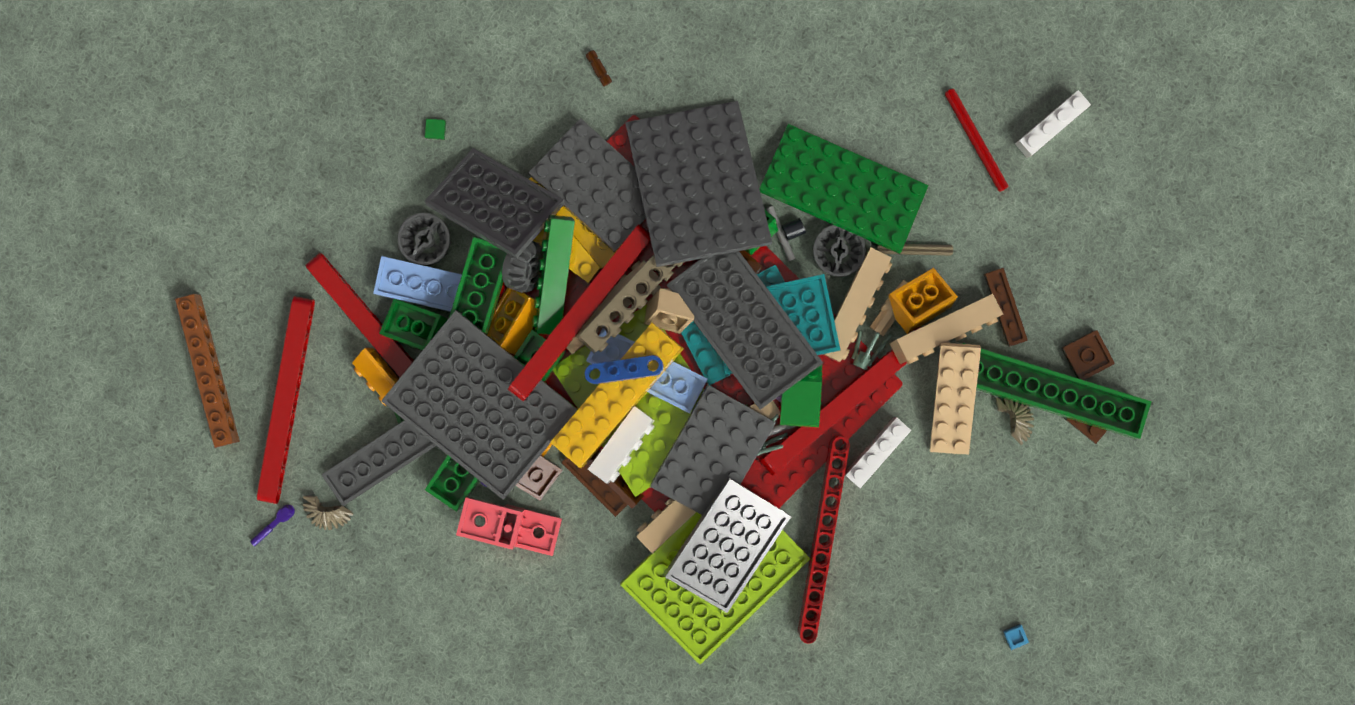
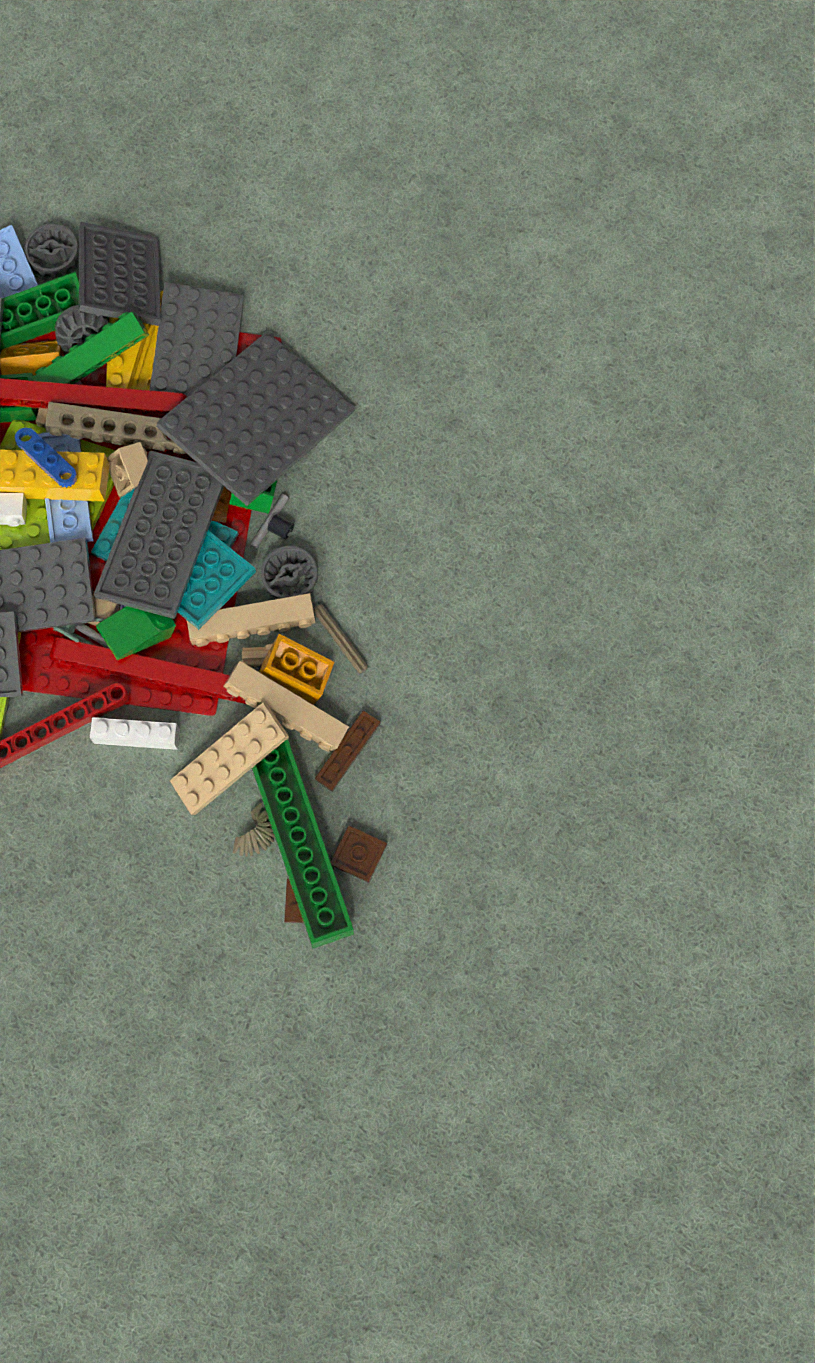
camera: 50 degrees right, 15 degrees down
(435, 129) = (151, 200): green tile -> none
(598, 68) = (298, 284): reddish brown axle -> none
(843, 188) = (345, 541): green plate -> none
(863, 359) = (208, 659): sand green plant -> none
(976, 140) = (474, 621): red axle -> none
(1015, 637) = (53, 982): dark azure tile -> none
(1052, 124) = (537, 671): white brick -> none

